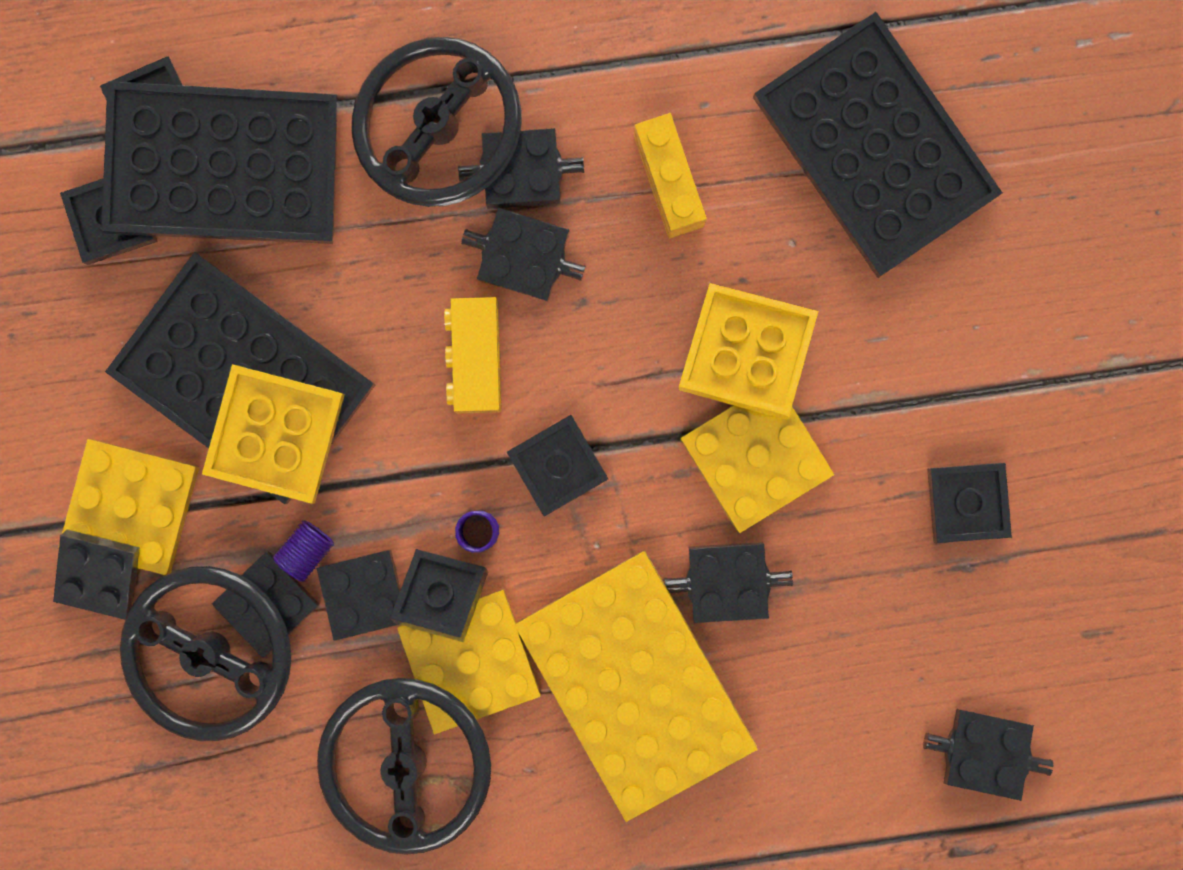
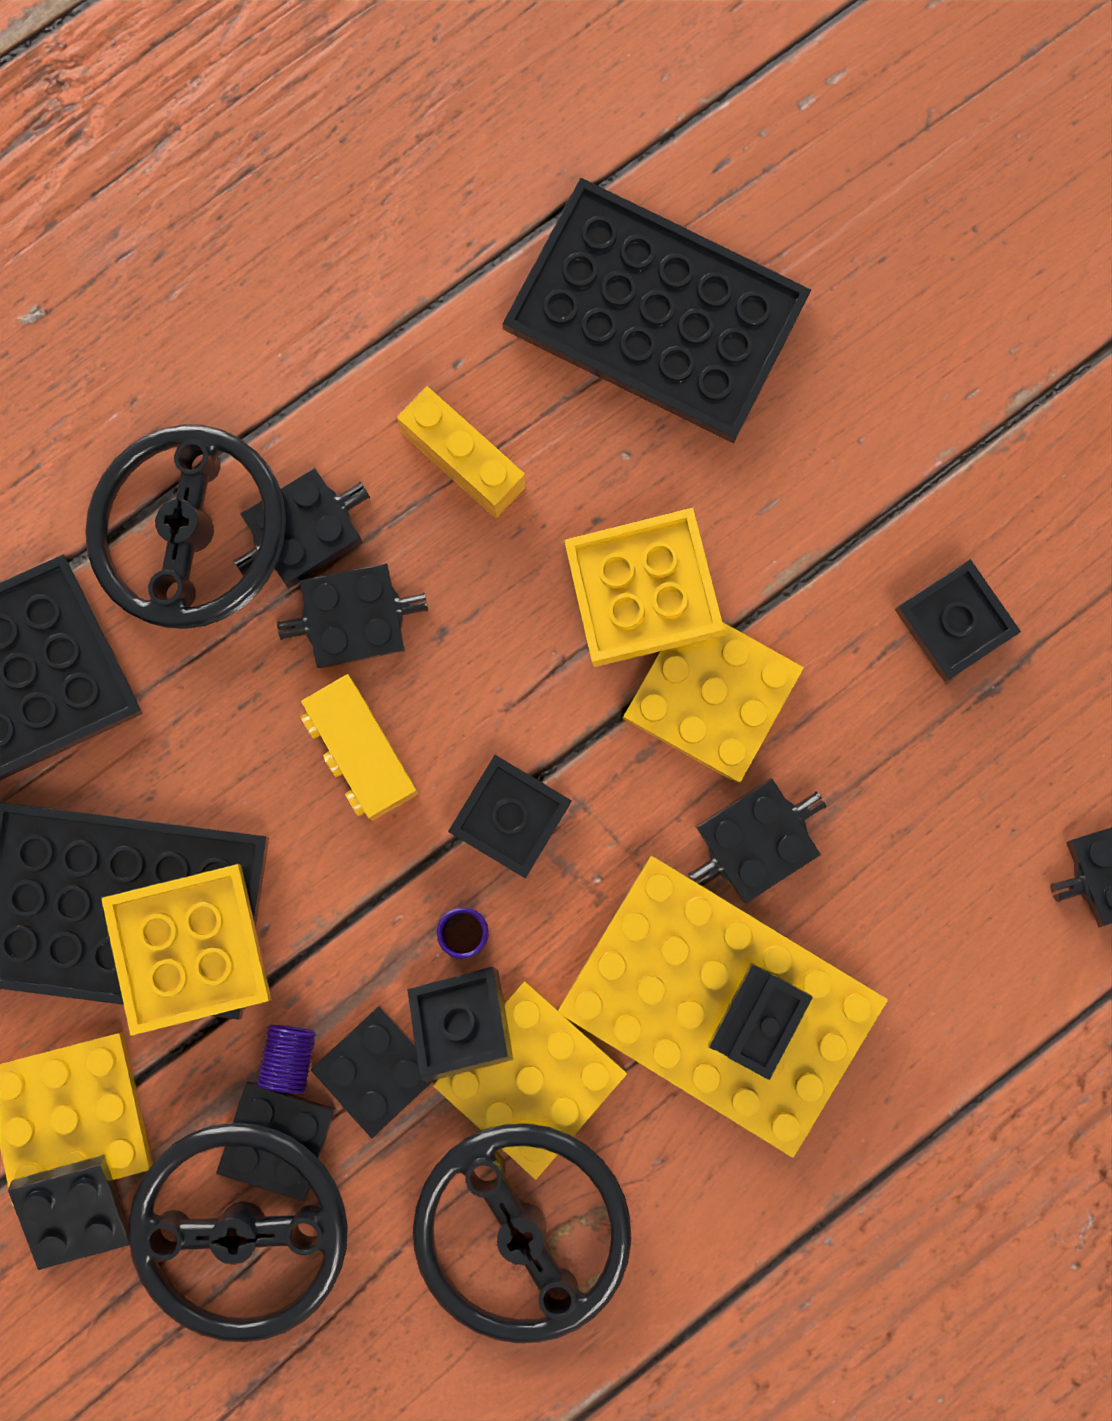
camera: 35 degrees left, 5 degrees down
(655, 713) = (760, 1021): none -> black plate

